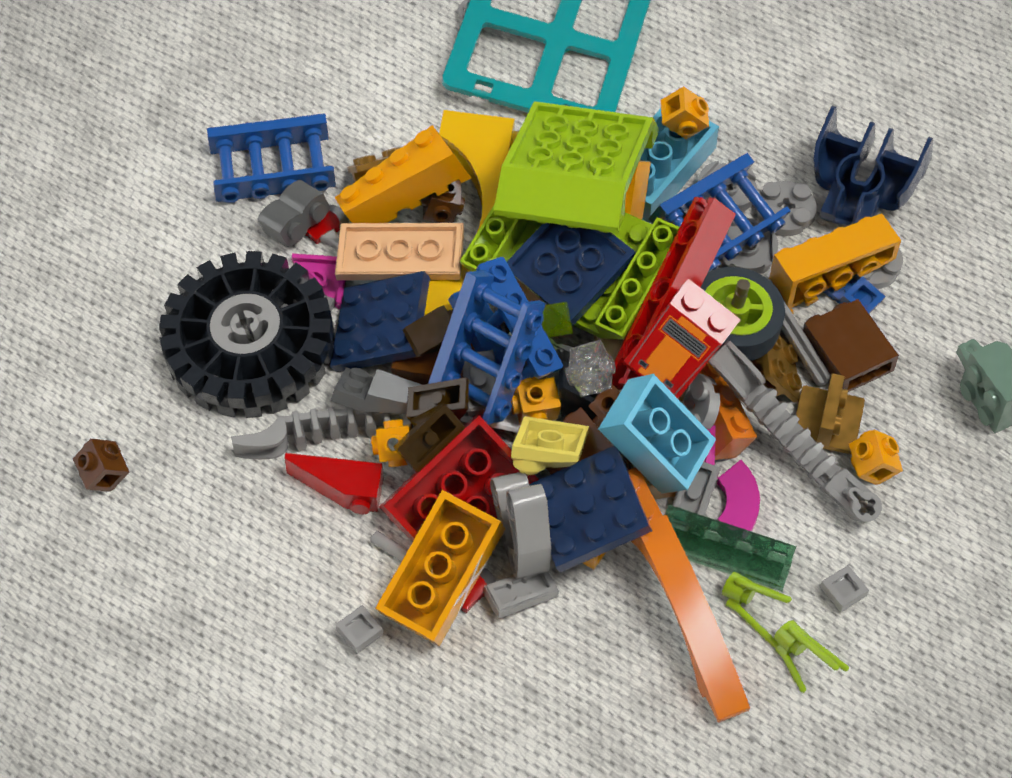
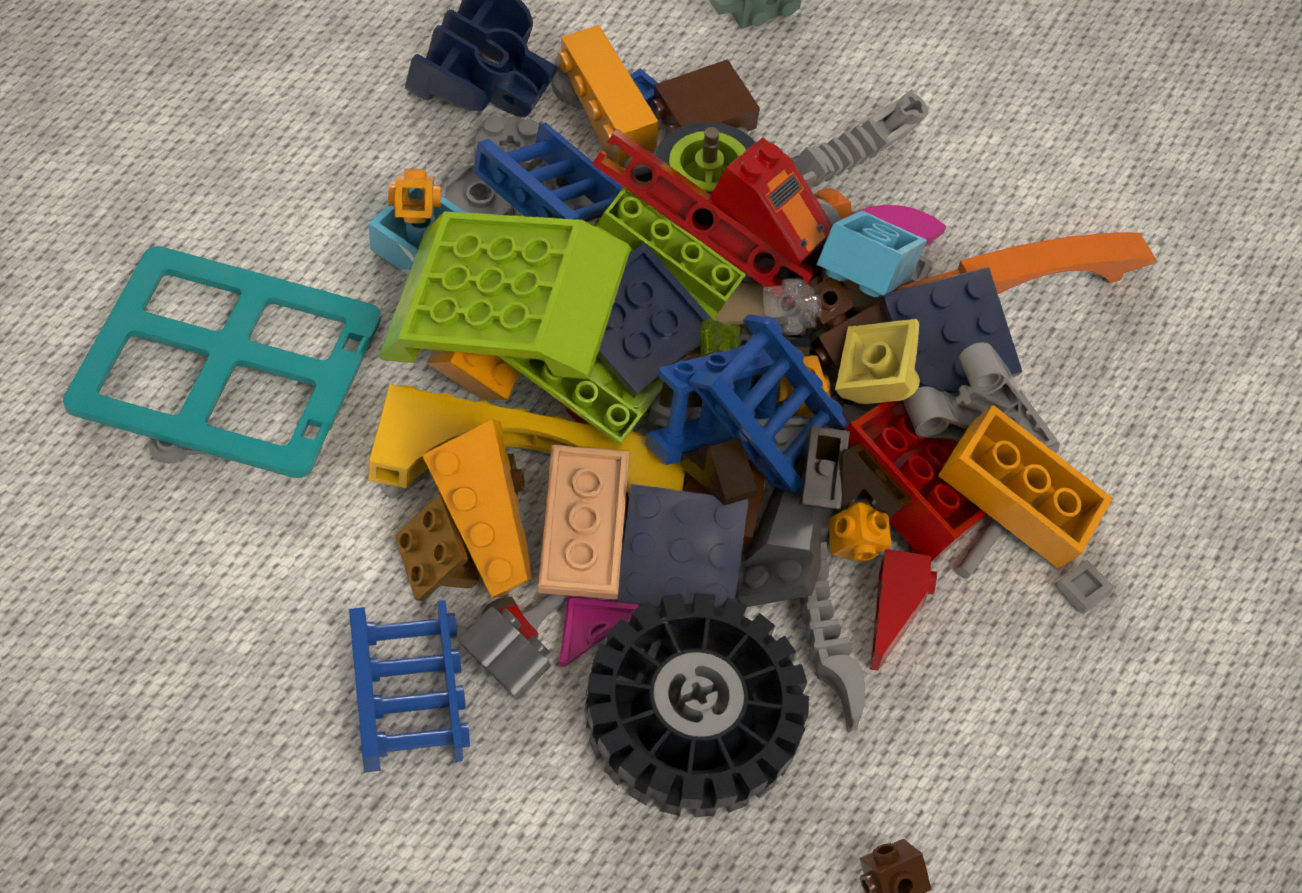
camera: 95 degrees left, 0 degrees up
(722, 548) = (962, 227): clear green fence -> none
(742, 590) = (1005, 230): lime plant -> none
(796, 640) = (1058, 189): lime plant -> none
(831, 414) = (793, 128): pearl gold bracket -> none
(844, 588) = (994, 145): light grey plate -> none
(875, 457) = (856, 101): light orange brick -> none

